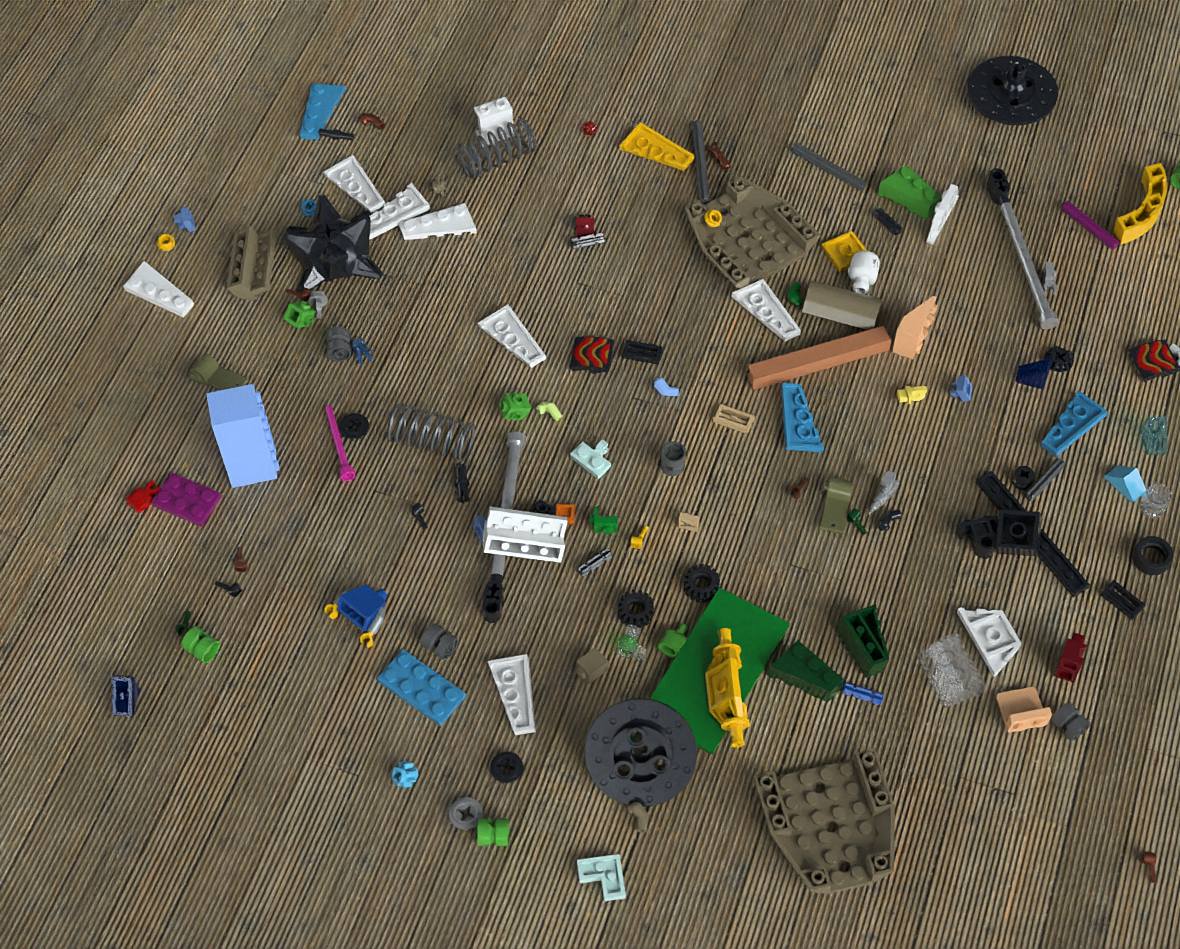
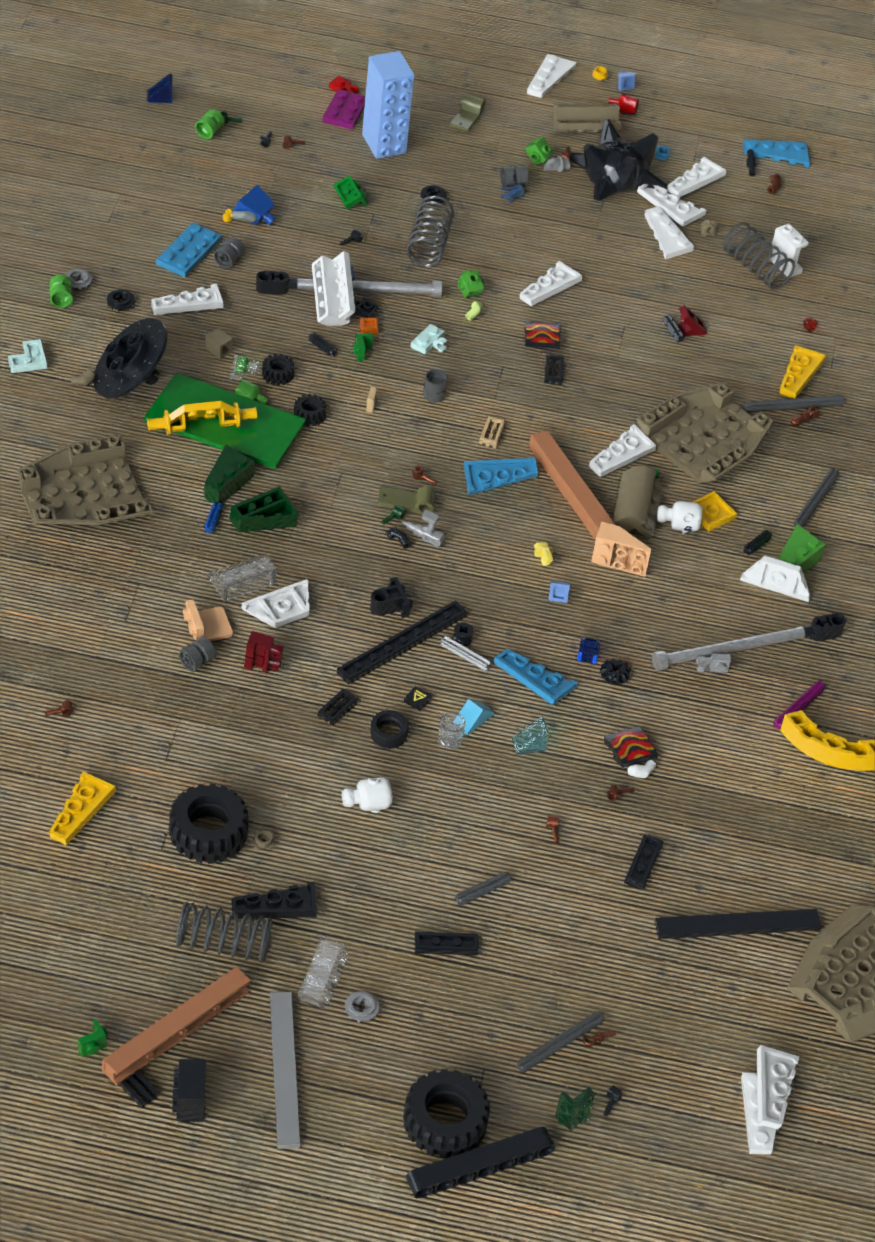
camera: 75 degrees right, 10 degrees down
(227, 225) = (626, 103): none -> red piece
(344, 508) = (349, 193): none -> green bracket
(346, 471) = (388, 192): dark pink piece -> none
(404, 774) = (107, 240): medium azure gear -> none
(461, 483) = (388, 260): black pin -> none
(636, 542) = (347, 371): yellow hand -> none
(663, 388) = (519, 379): light blue arm -> none
(716, 218) = (714, 398): yellow plate -> none
(1019, 533) = (392, 618): black brick -> none
(1106, 528) = (417, 698): none -> black tile

